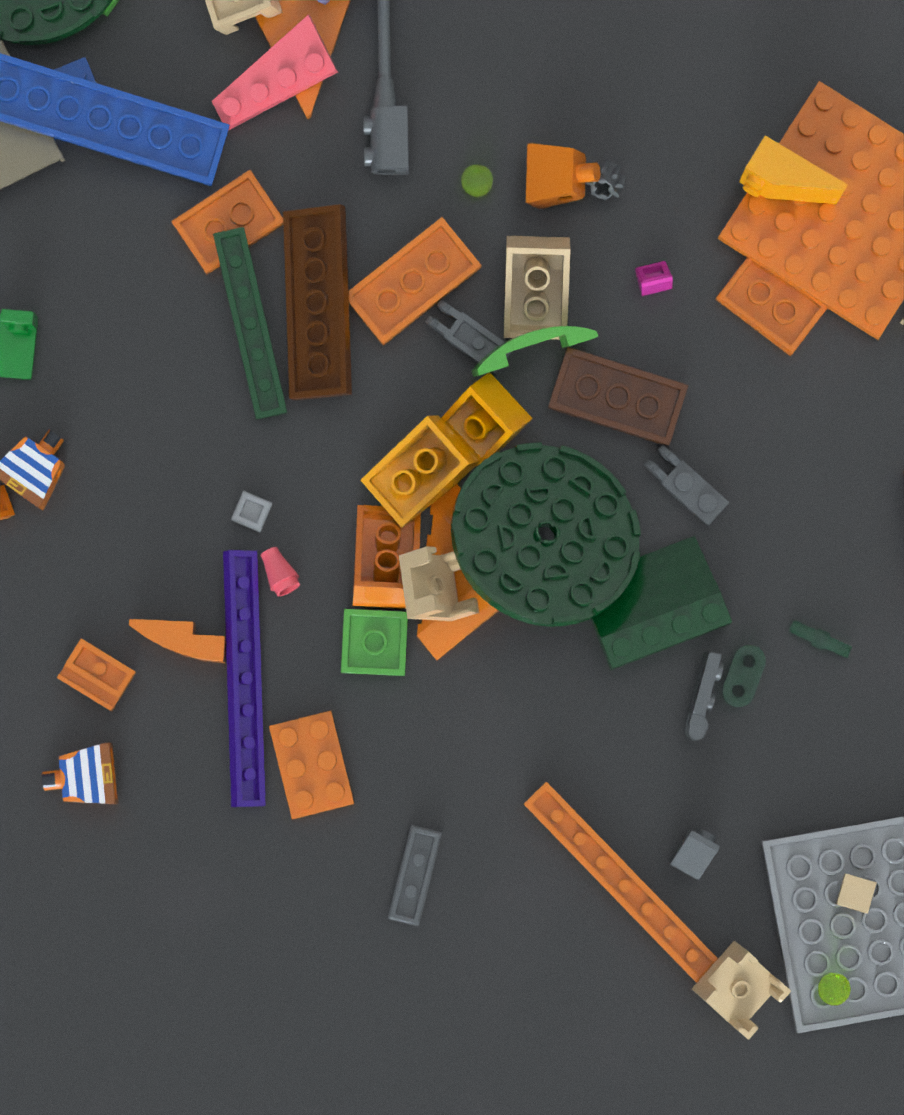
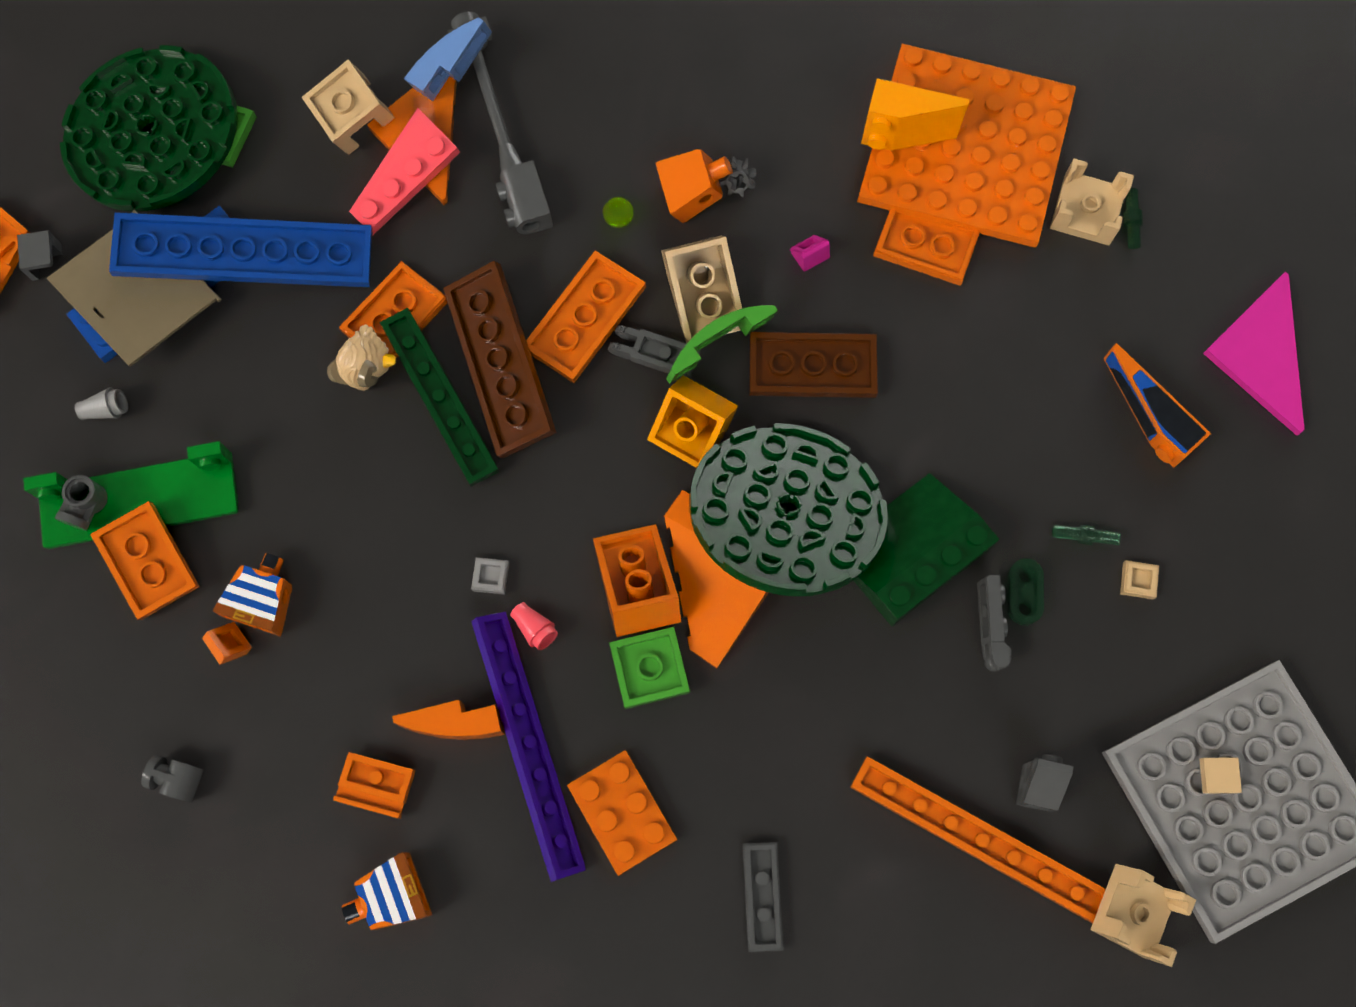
camera: 15 degrees left, 10 degrees down
(185, 265) = (361, 360): none -> tan hair
(419, 470) = (643, 486): light orange slope -> none
(431, 586) = (690, 591): tan panel -> none
(689, 487) = (907, 429): dark grey hinge -> none
(834, 988) = (1237, 883): clear neon green plate -> none
(855, 696) = (1139, 579): none -> tan tile

